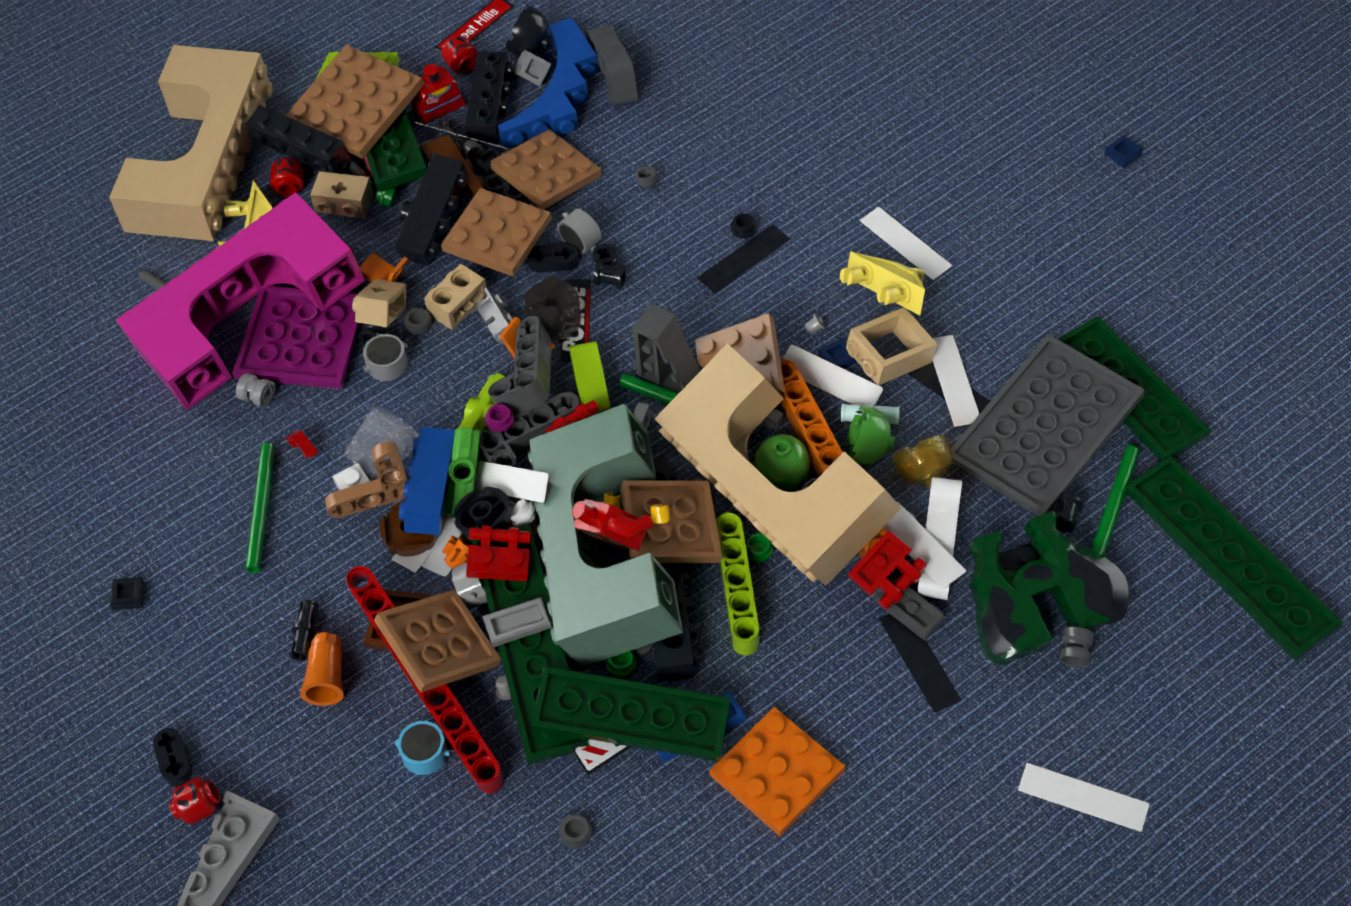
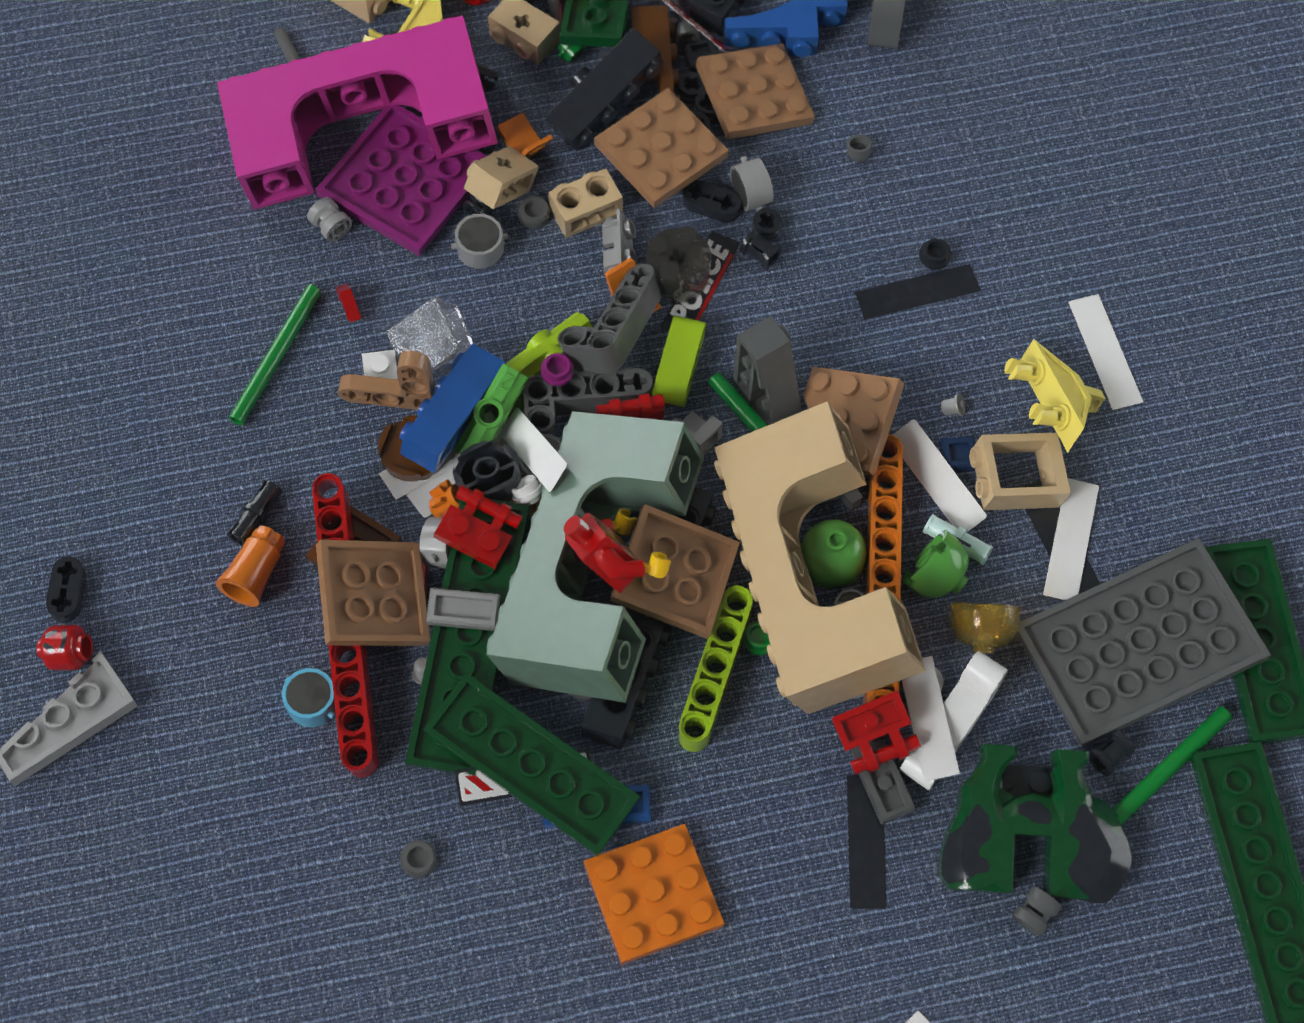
camera: 20 degrees right, 10 degrees up
(127, 593) = (103, 389): black tile -> none
(622, 664) = (553, 702): green plate -> none

